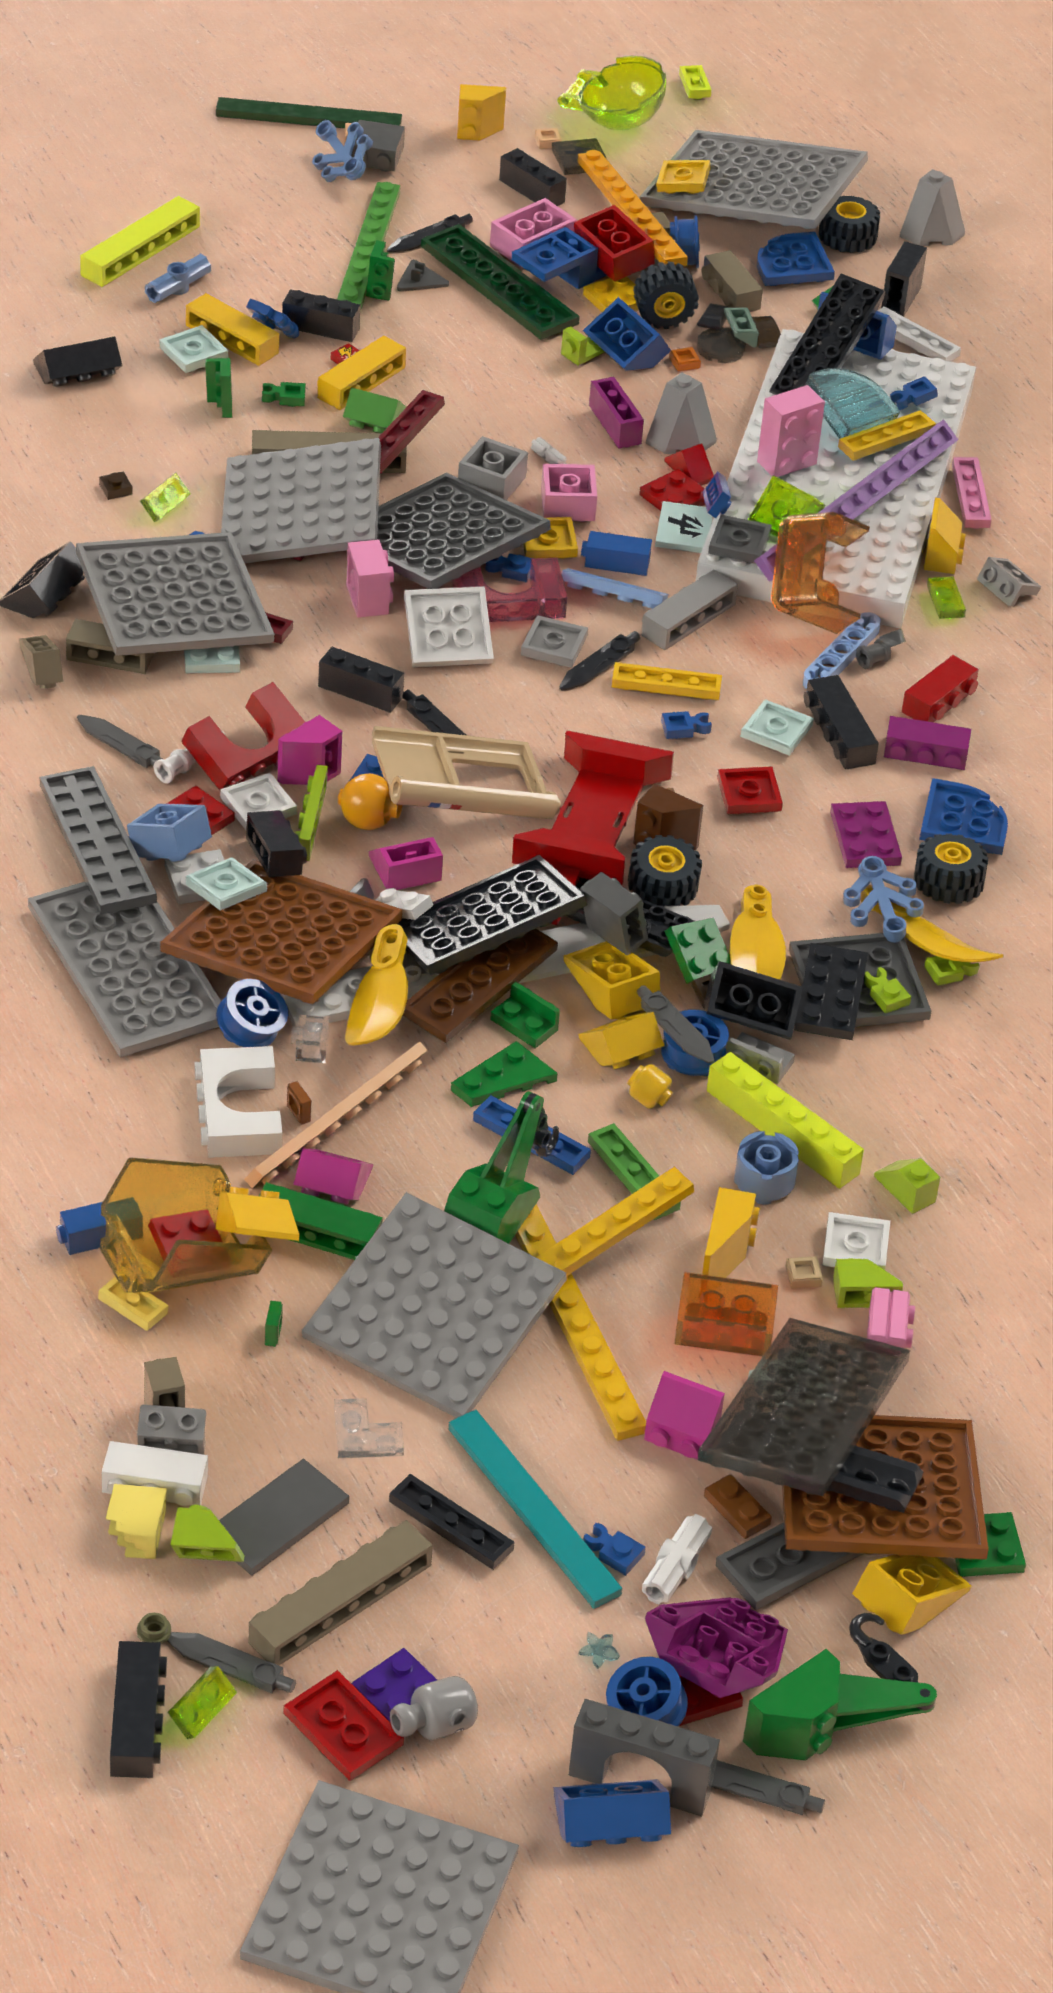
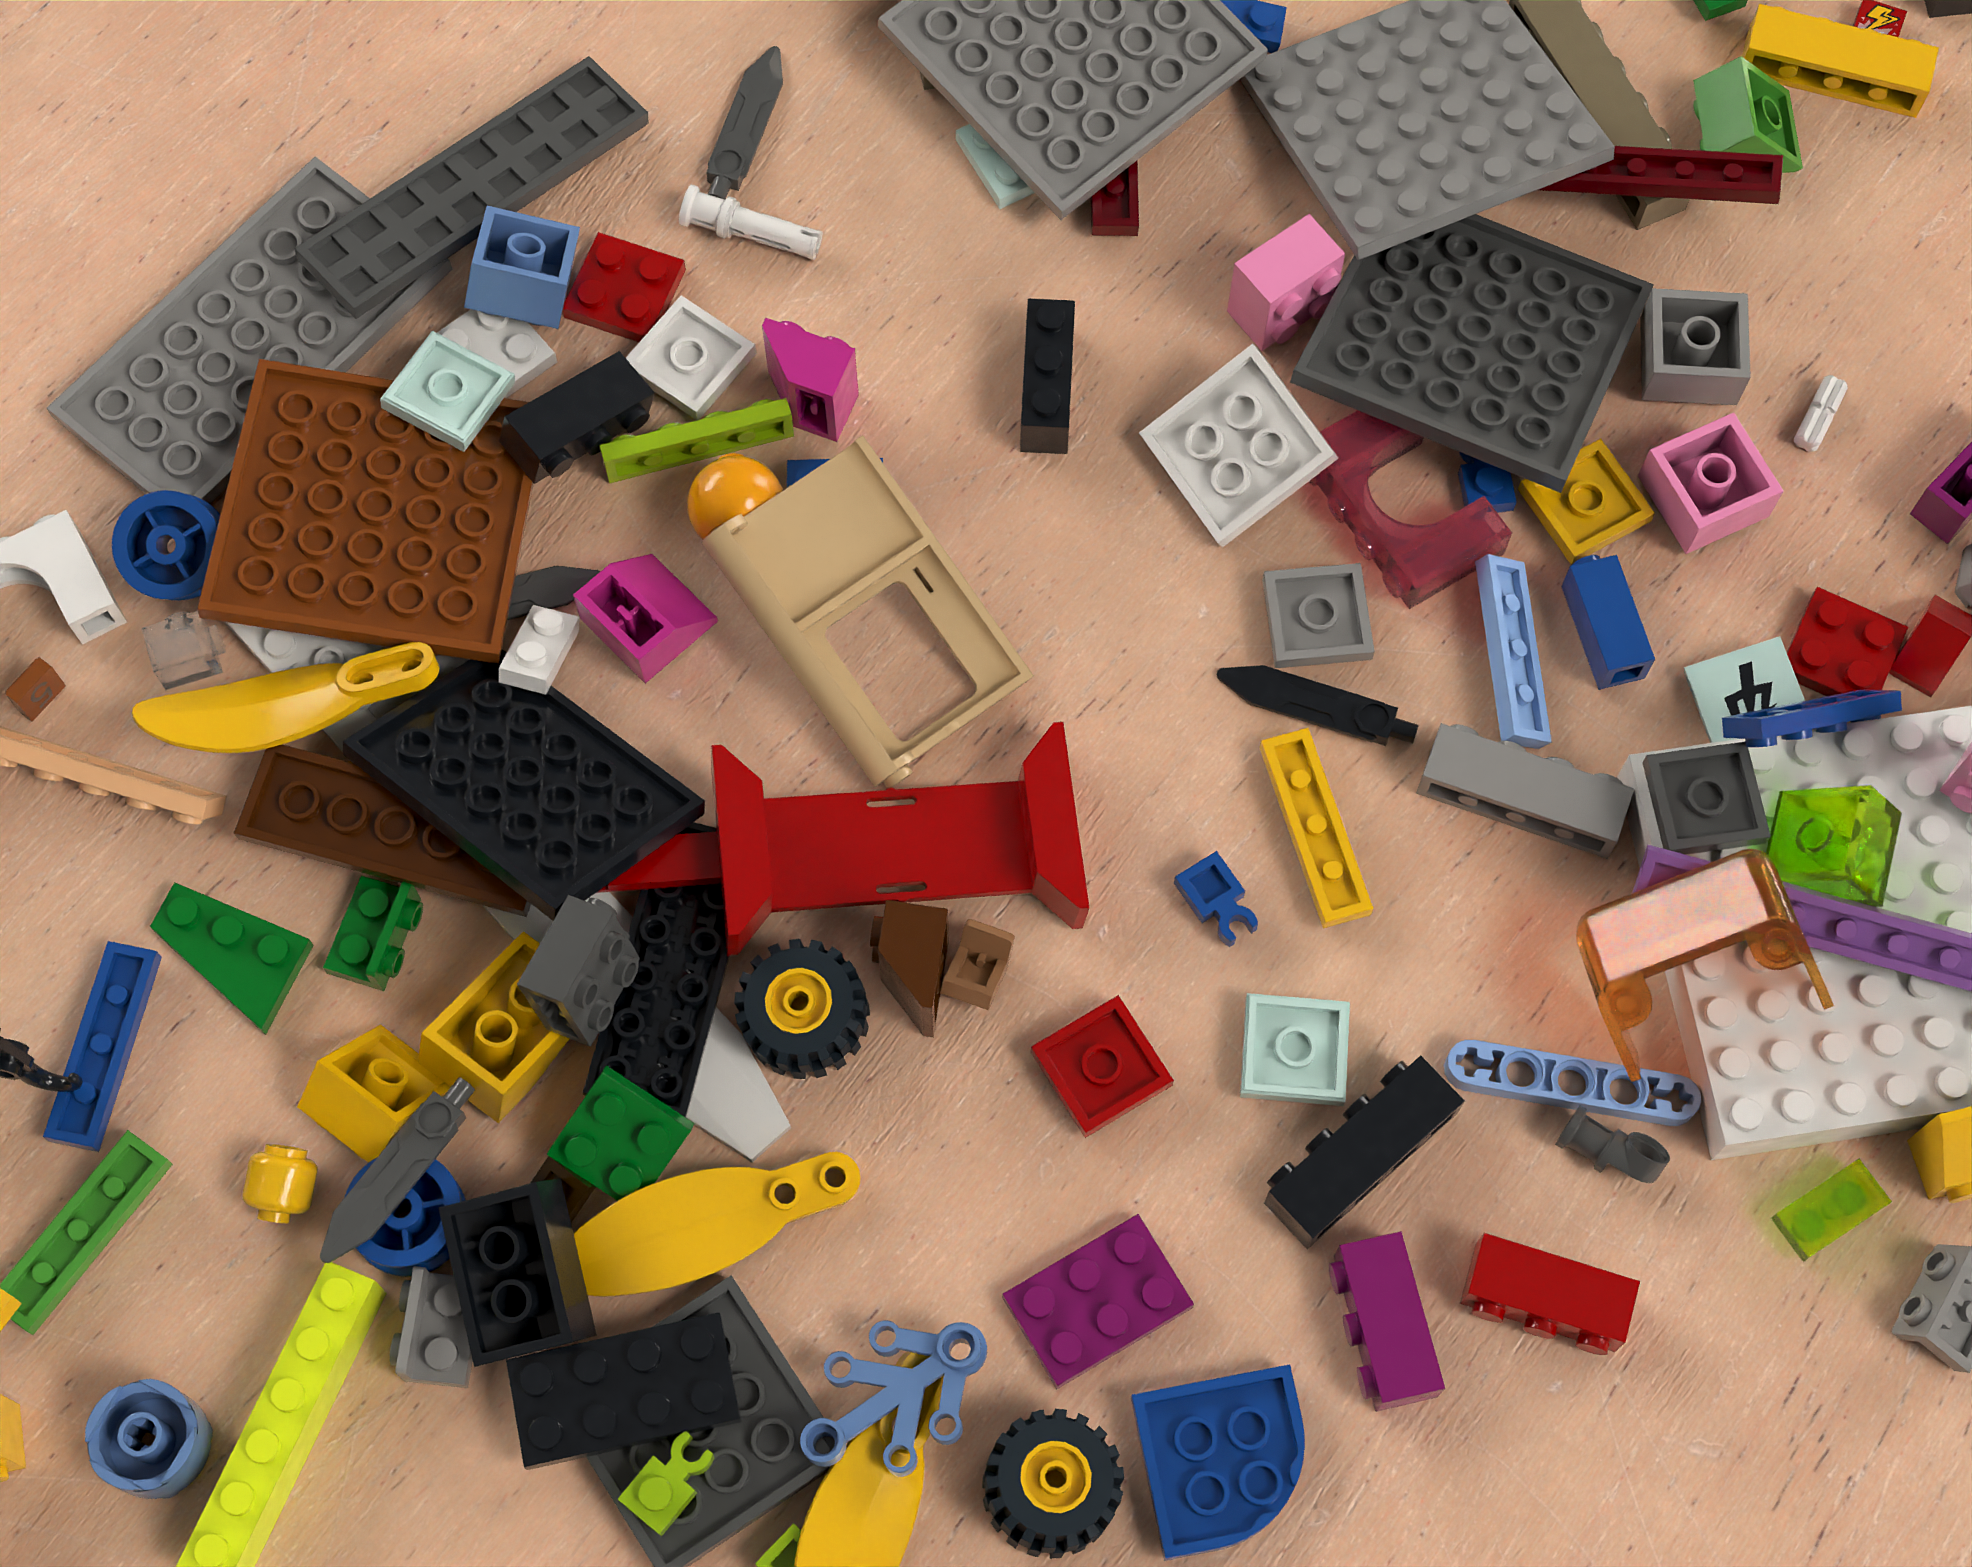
camera: 70 degrees right, 25 degrees up
(230, 764) = (739, 281): red arch -> none
(429, 714) = (1022, 531): black piece -> none

